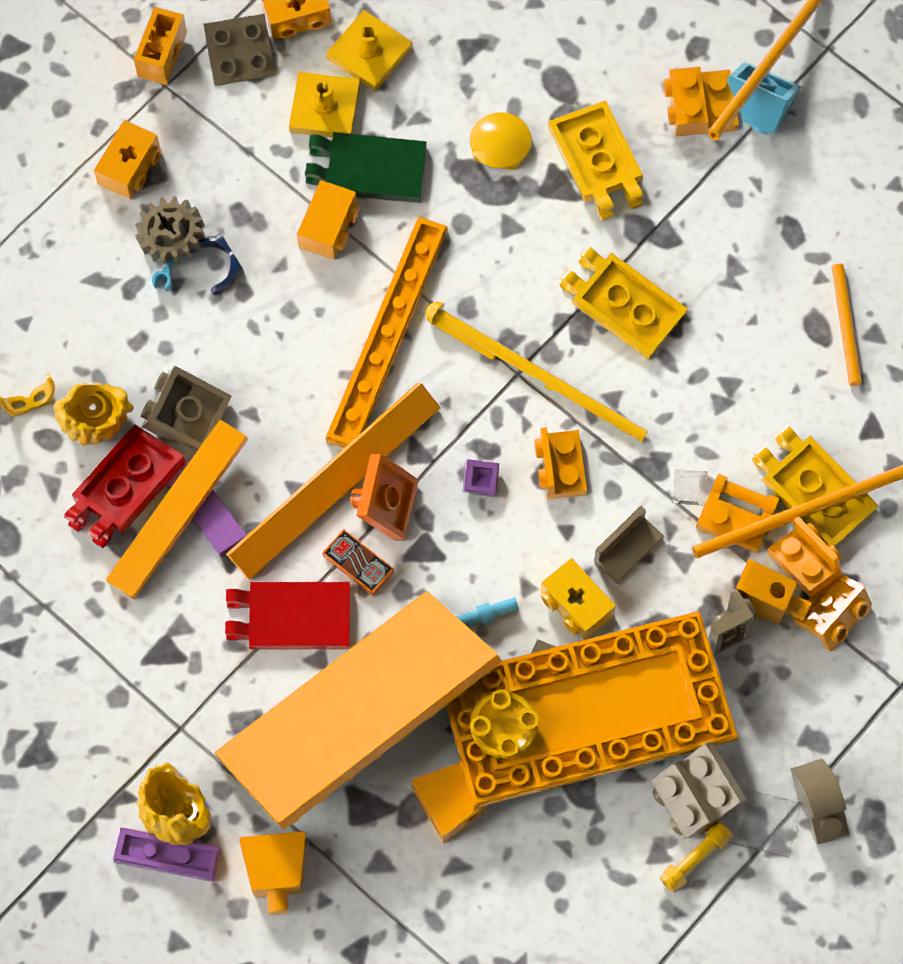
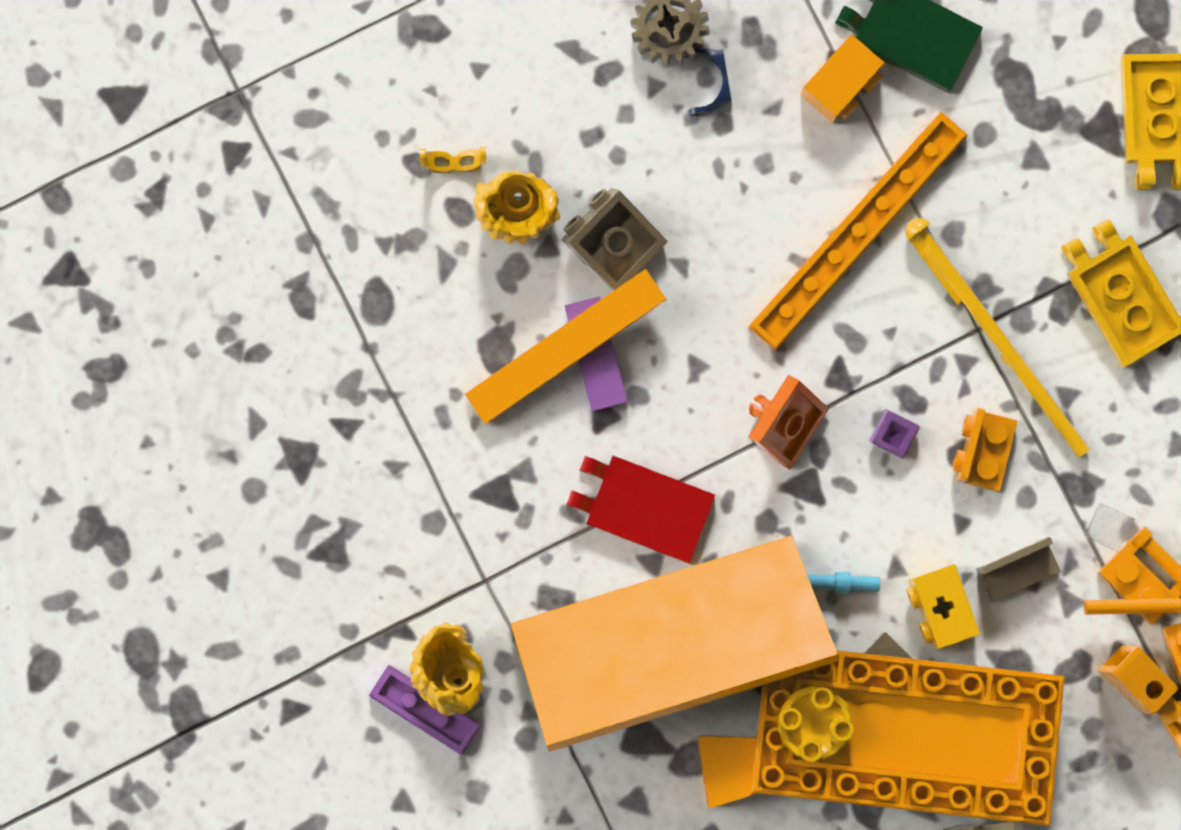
camera: 15 degrees right, 15 degrees up
(123, 484) = (521, 296): red tile -> none
(164, 274) = (648, 71): medium azure hand -> none
(275, 867) = (527, 770): light orange torso -> none
(332, 481) = (740, 377): light orange tile -> none
(358, 562) = (732, 475): tile -> none
(500, 141) = (1063, 56): yellow dish -> none
(732, 625) = (1101, 701): dark tan bracket -> none

